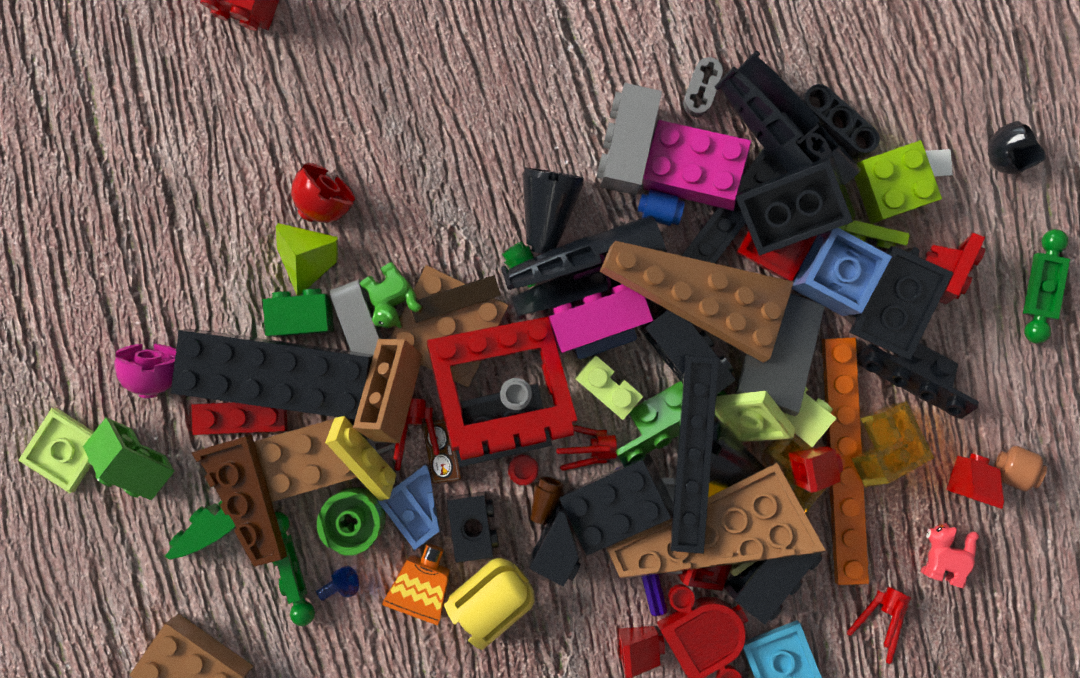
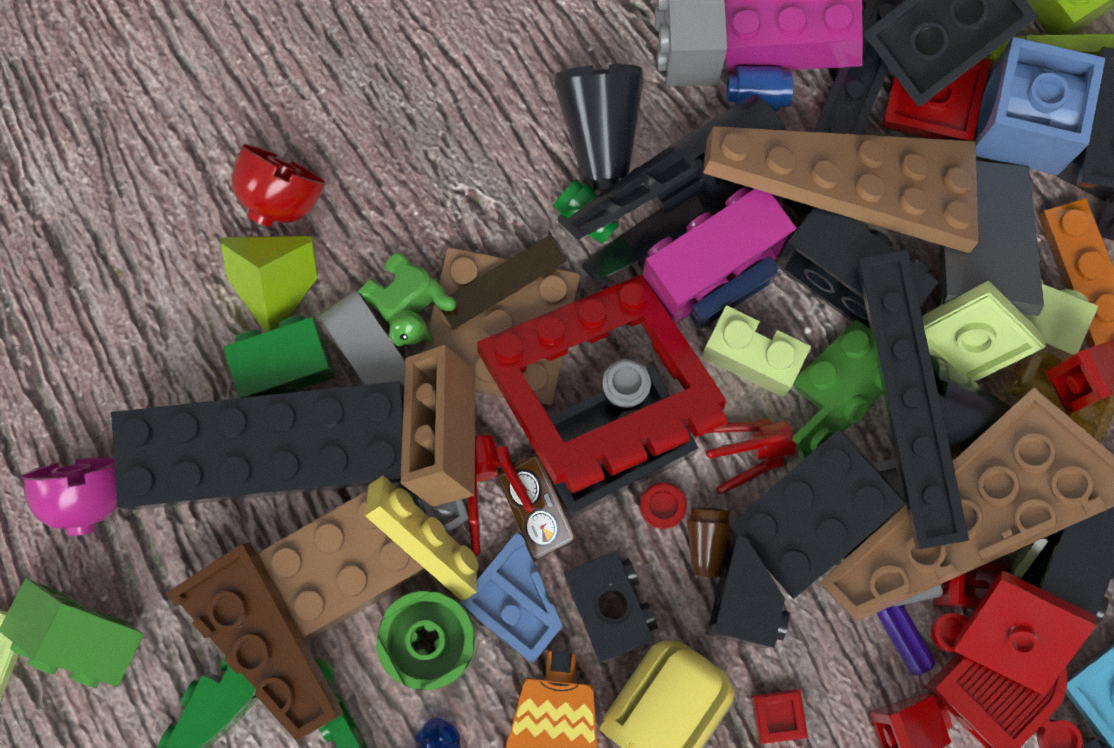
camera: 10 degrees left, 10 degrees down
(236, 418) = (214, 534): red plate -> none
(561, 618) = (779, 716): none -> red tile
(723, 615) = (1024, 632): none -> red plate

